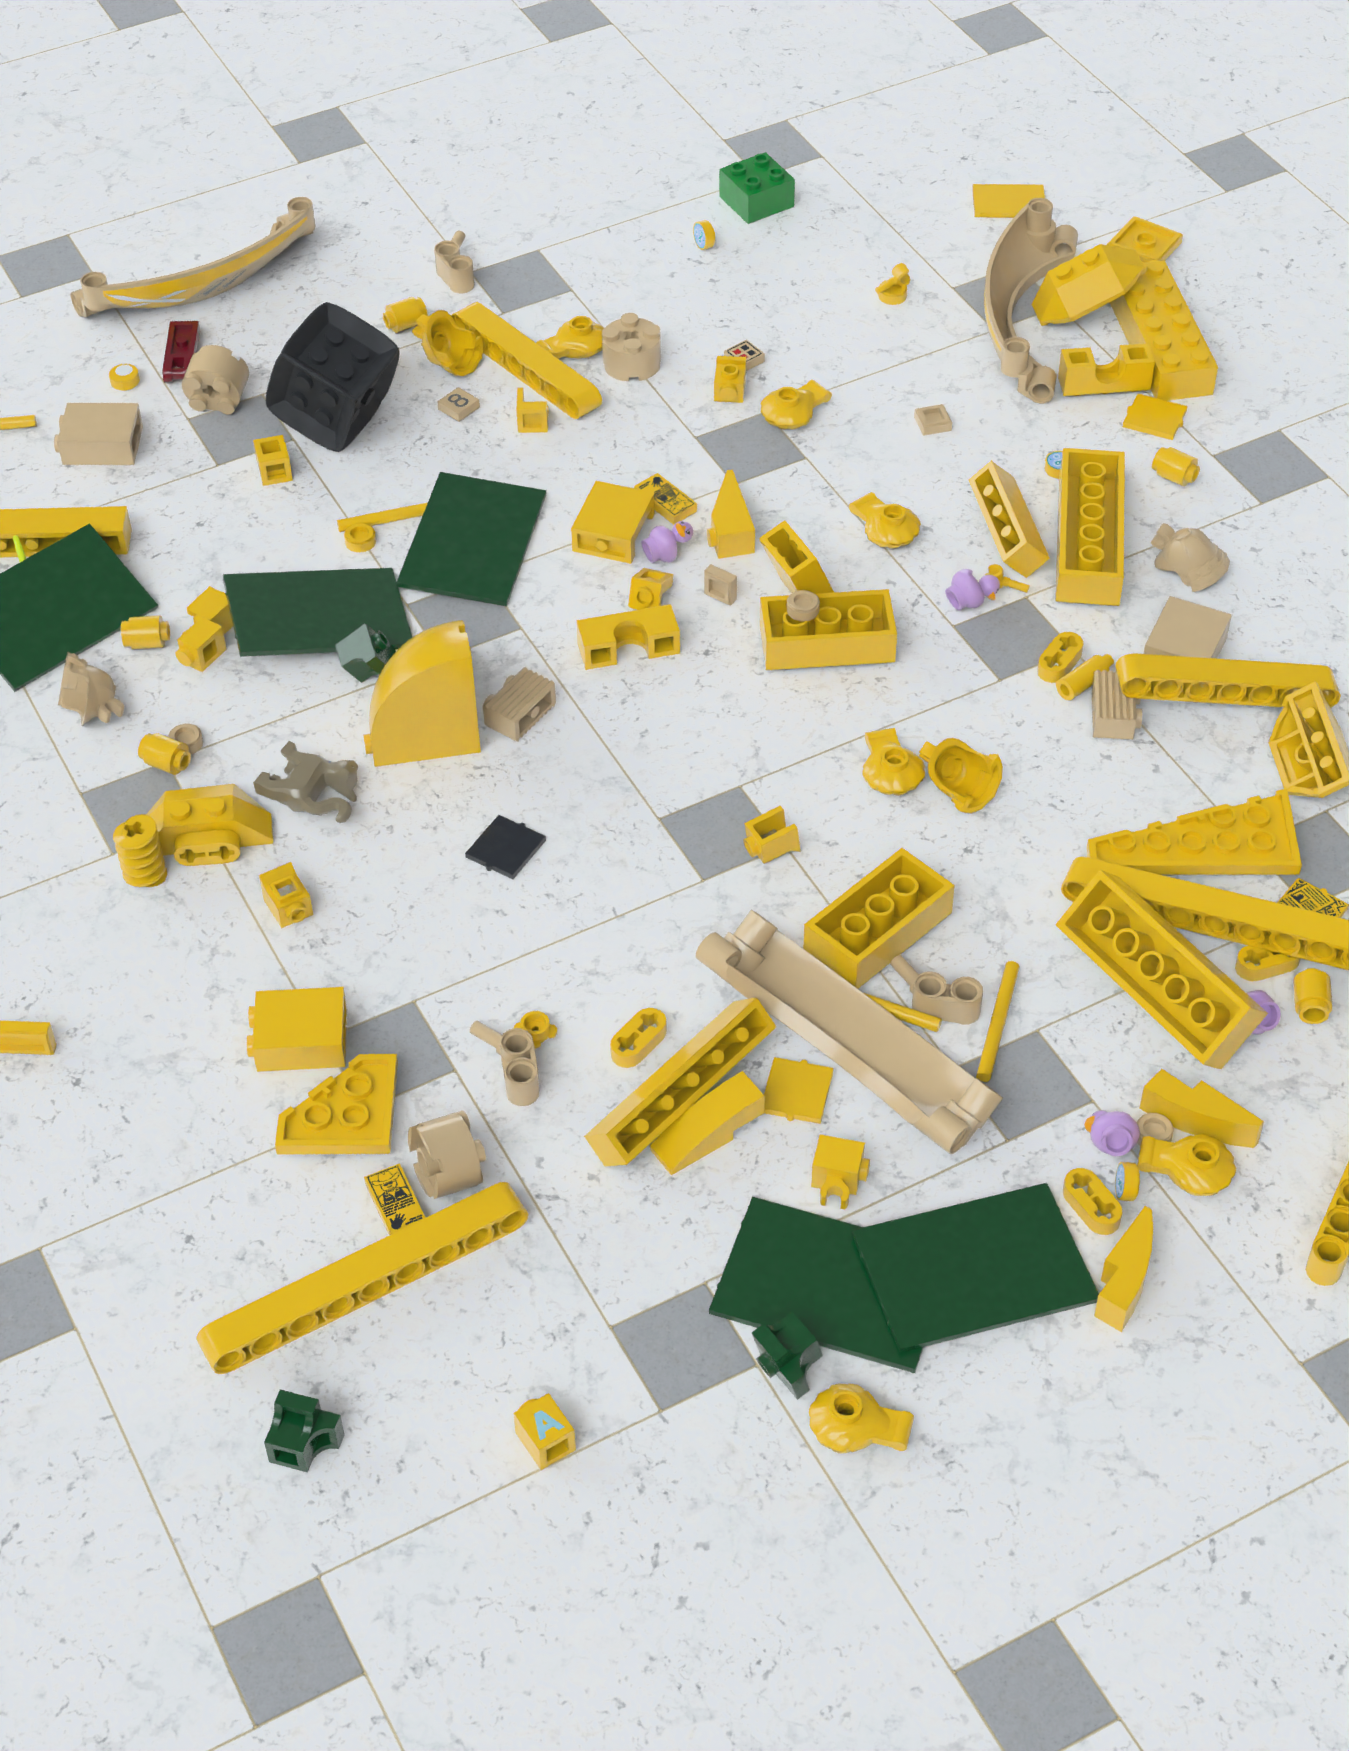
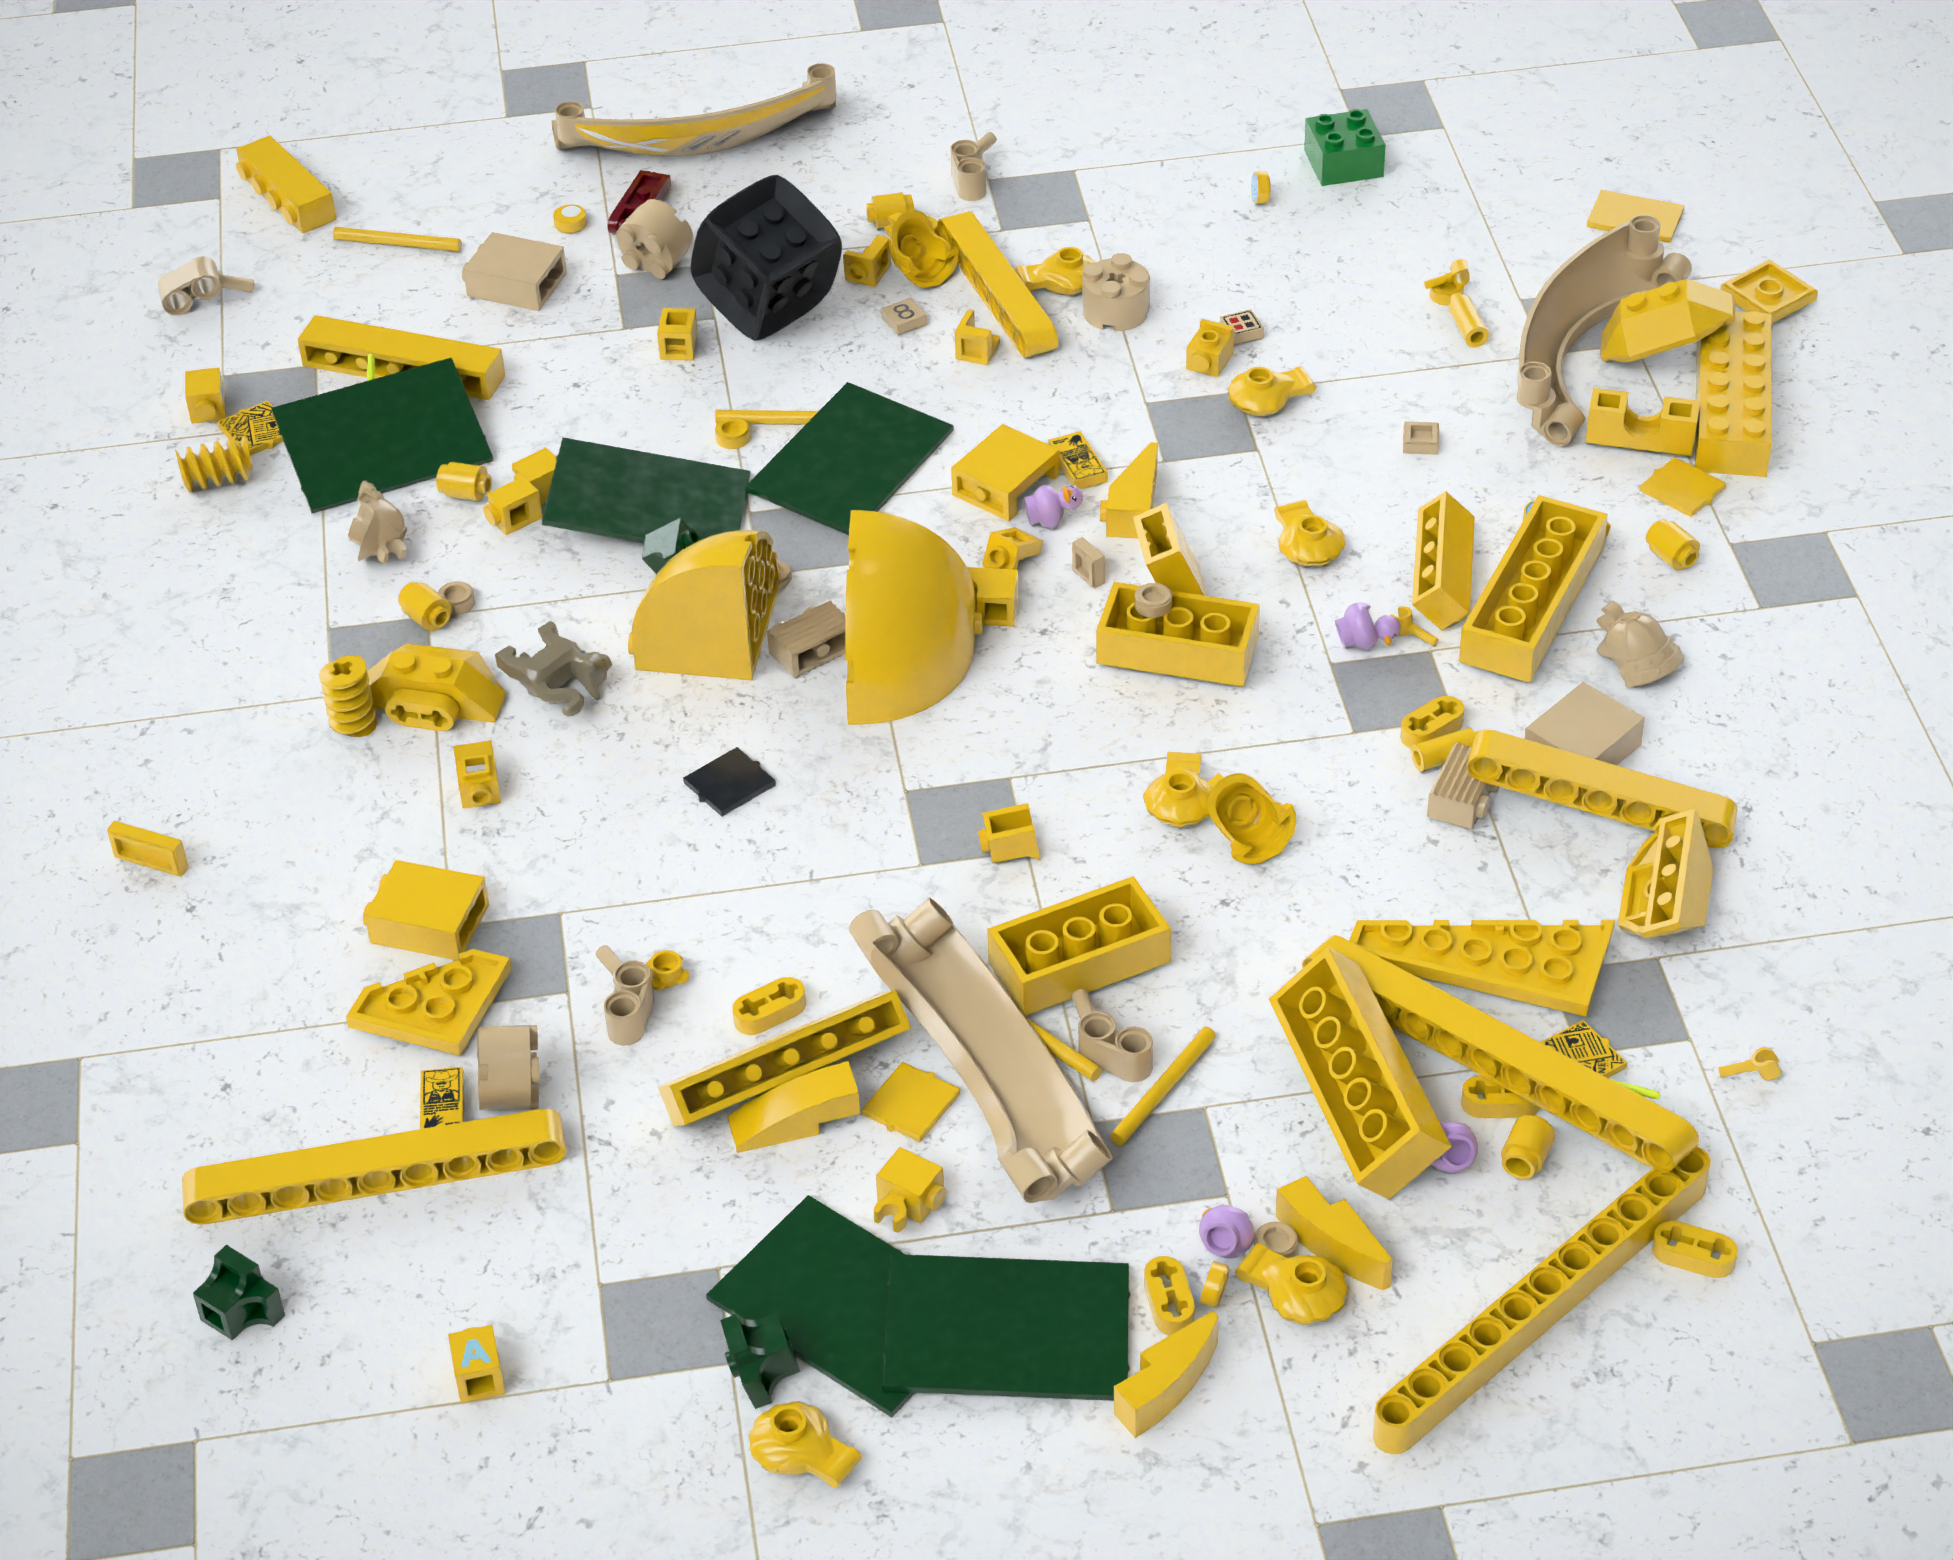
camera: 20 degrees right, 5 degrees down
(410, 364) = (869, 266): none -> yellow bracket
(600, 670) = (905, 618): none -> yellow brick
(923, 313) = (1468, 320): none -> yellow cylinder

